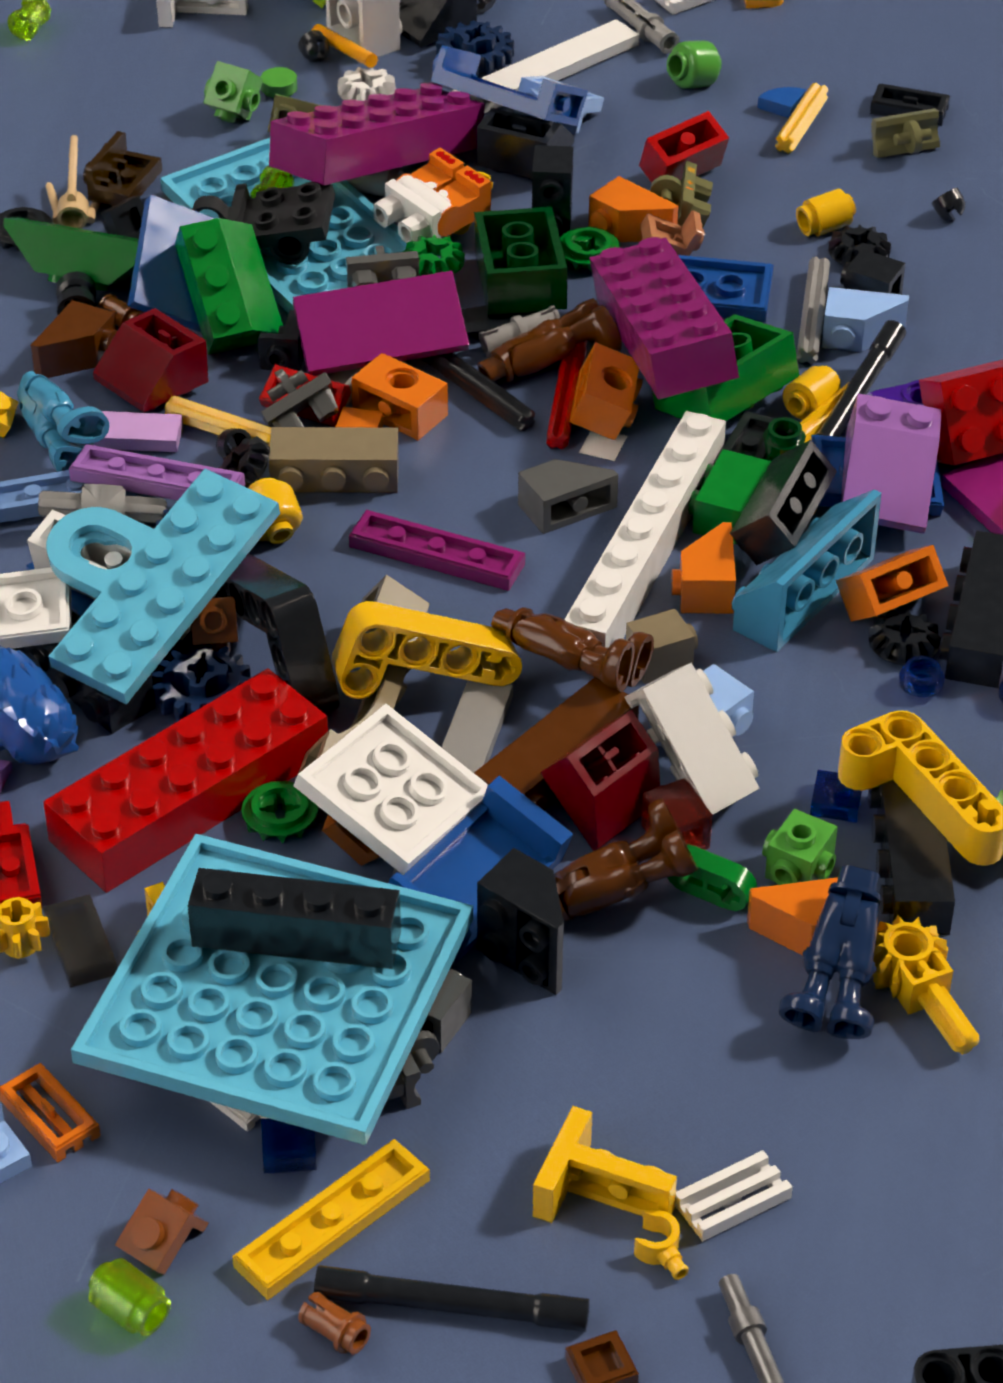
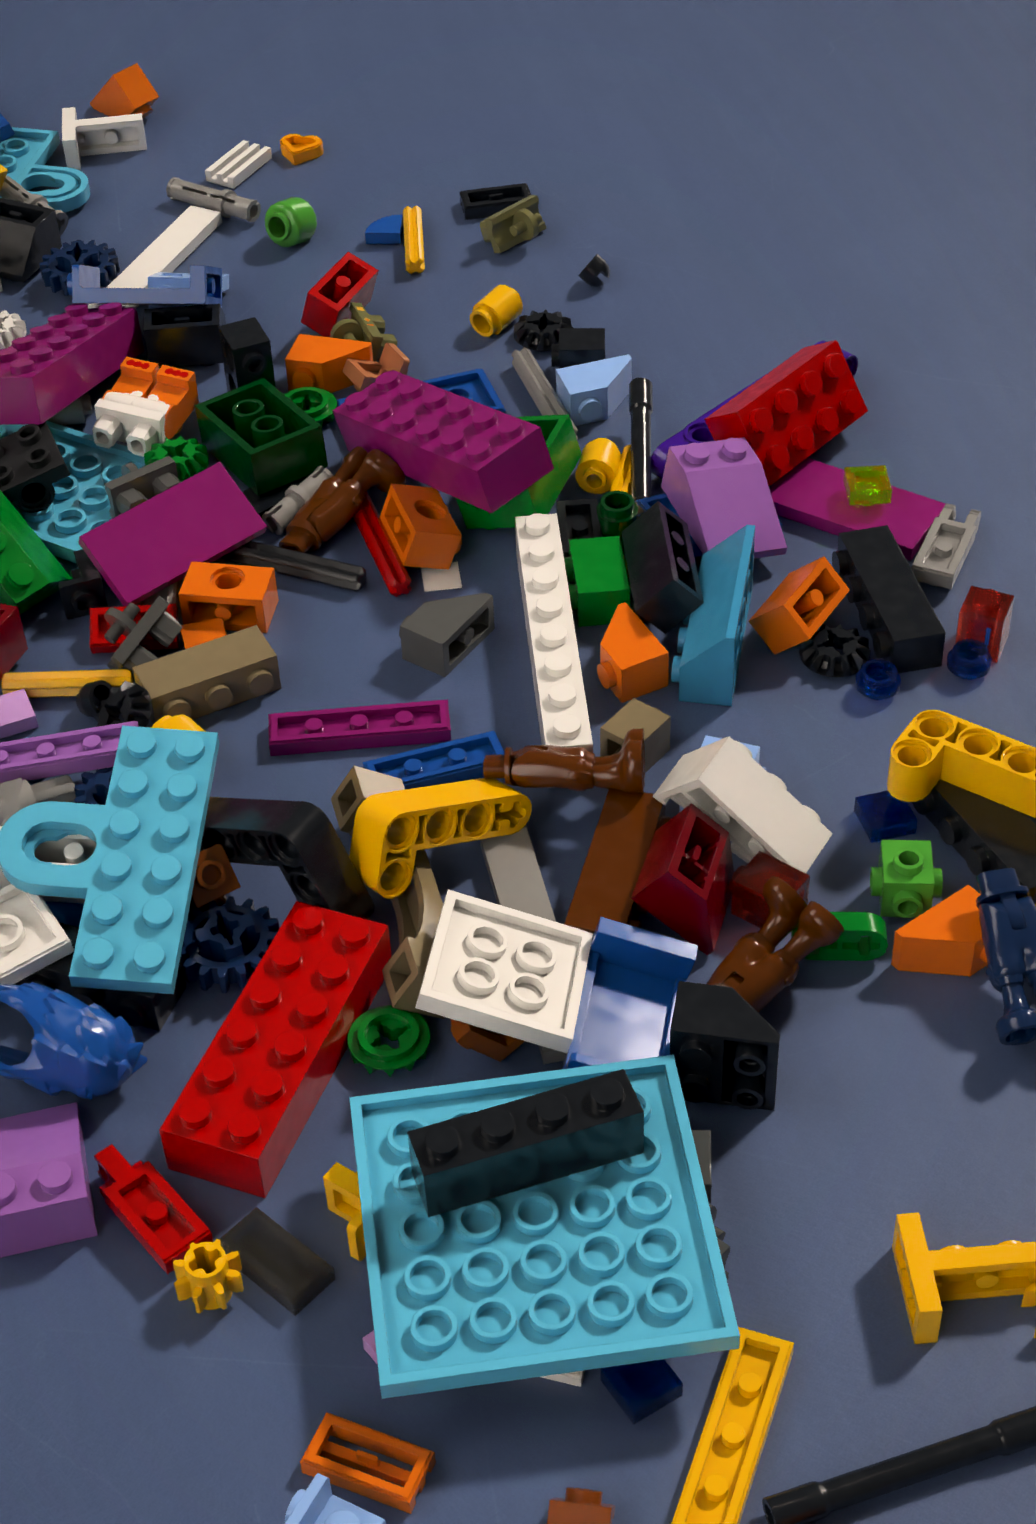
camera: 25 degrees left, 0 degrees up
(475, 603) = (440, 763): none -> blue tile

